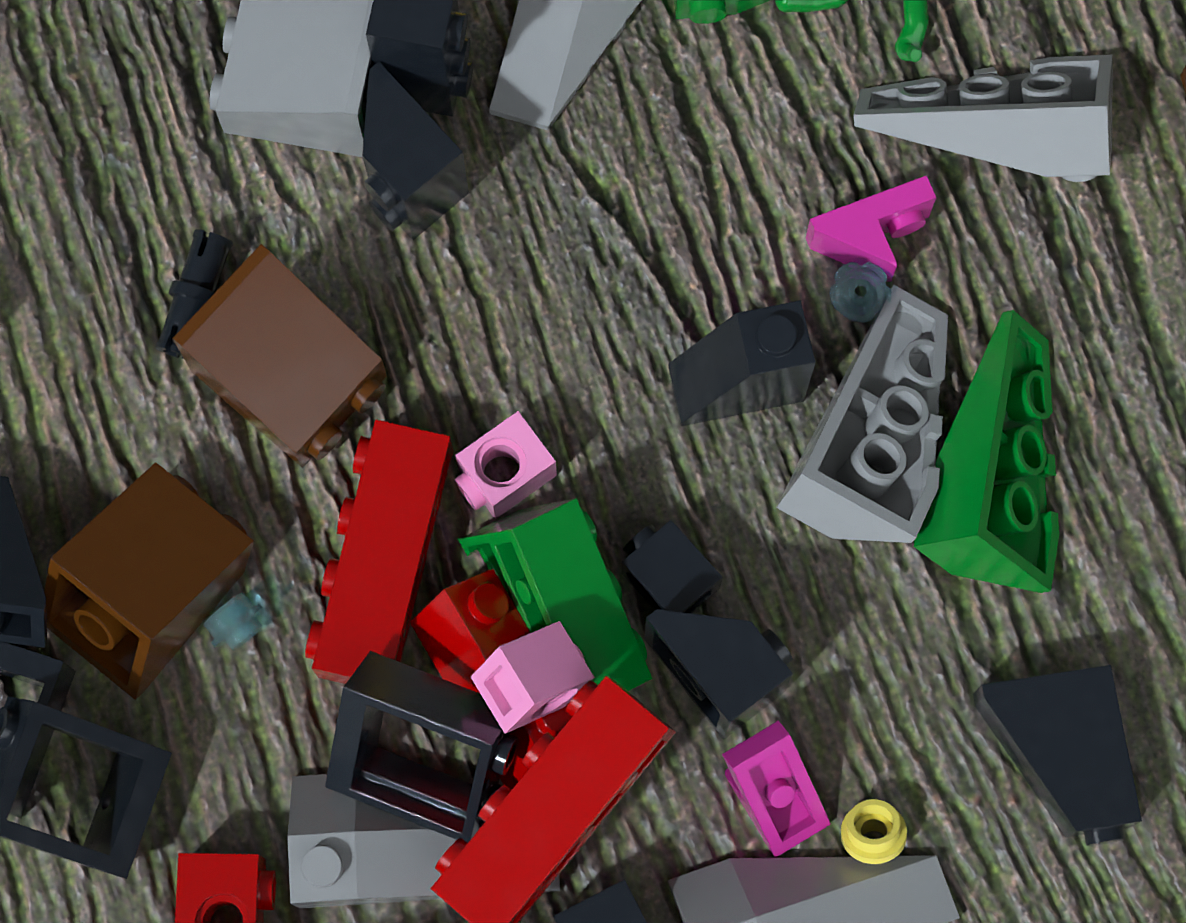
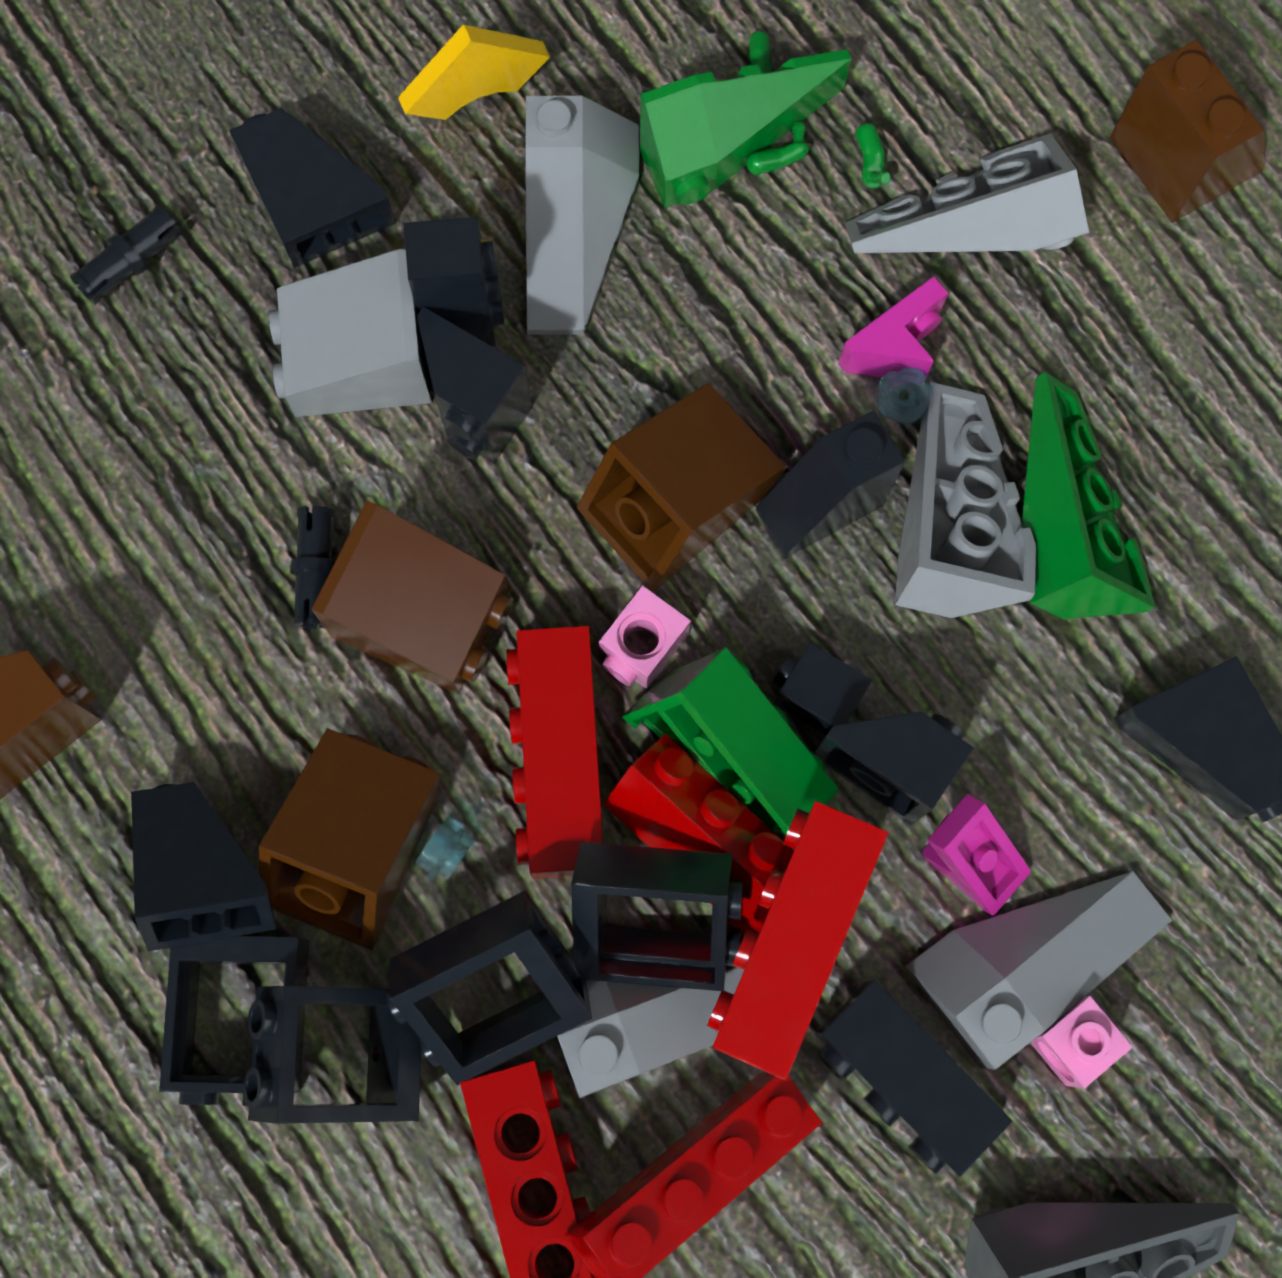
camera: 20 degrees left, 0 degrees up
(265, 711) = (468, 947): none -> black window
(532, 676) = (741, 822): bright pink brick -> none
(592, 316) = (678, 484): none -> reddish brown slope
(873, 816) = (1079, 853): light yellow plate -> none

